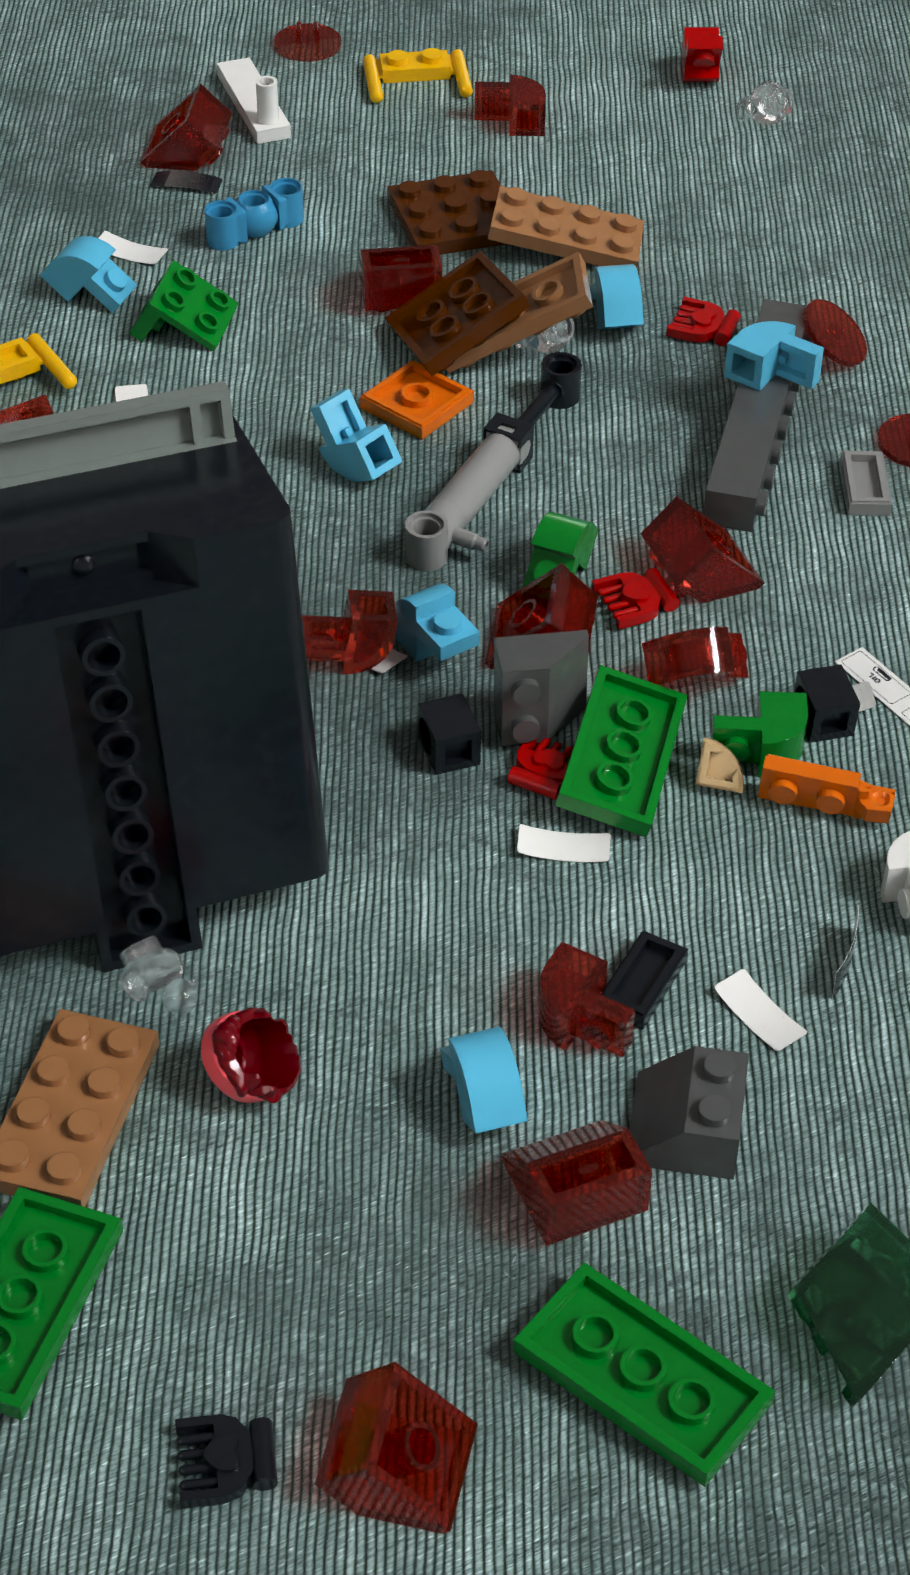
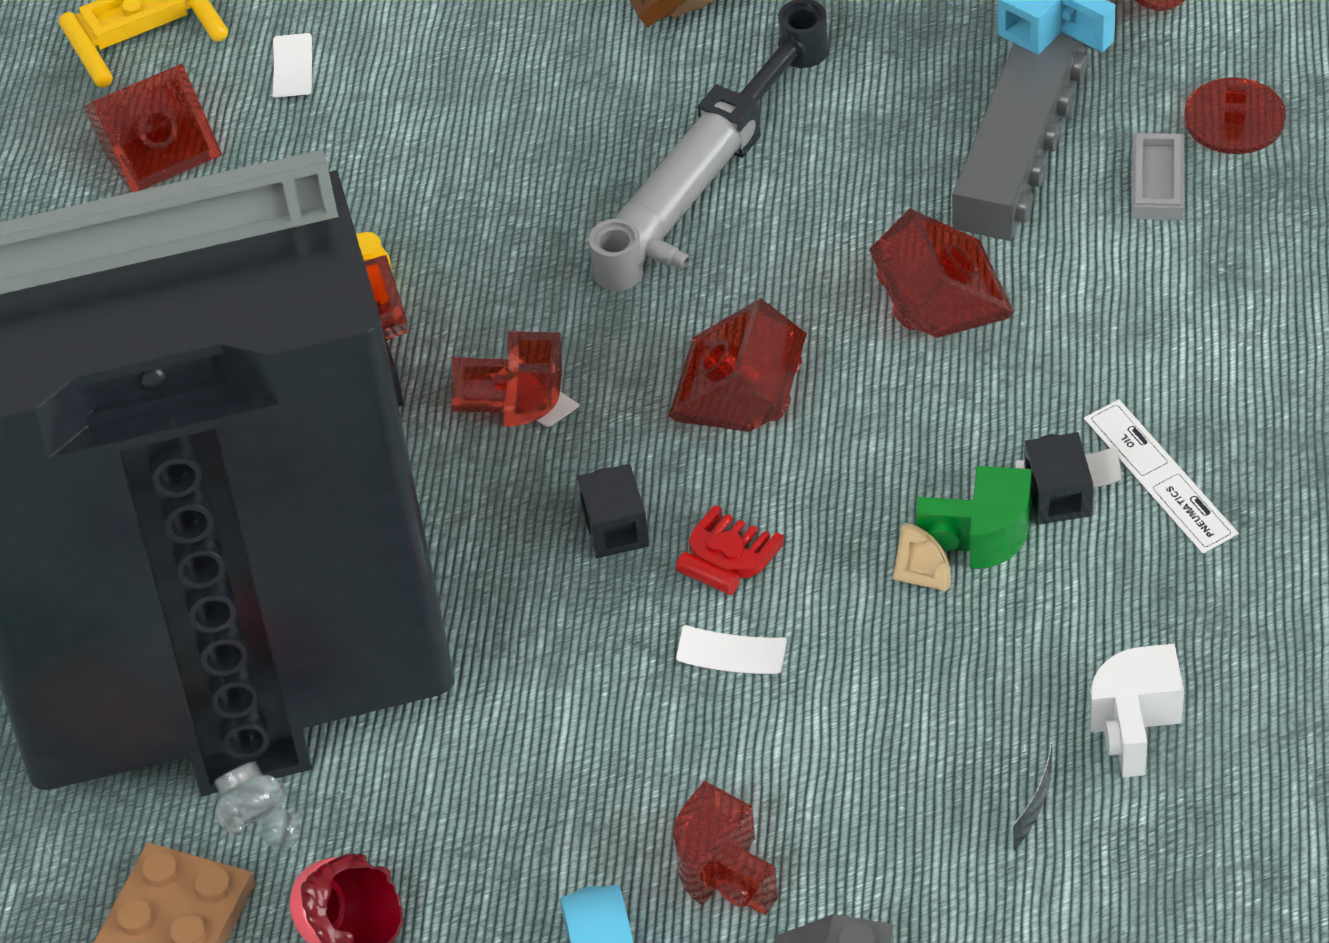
camera: 10 degrees right, 5 degrees up
(349, 445) = (539, 124): medium azure brick -> none
(416, 399) = (628, 58): orange tile -> none
(433, 624) = (609, 371): medium azure brick -> none
(539, 684) = (720, 453): dark grey slope -> none
(560, 541) = (769, 266): green brick -> none
(622, 751) = (809, 536): green plate -> none
(639, 596) = (861, 329): red piece -> none
(646, 975) = (799, 821): black tile -> none
(695, 657) = (910, 419): clear red brick -> none
(759, 1011) = (926, 864): white sticker -> none
(824, 789) = (1040, 590): orange hinge -> none

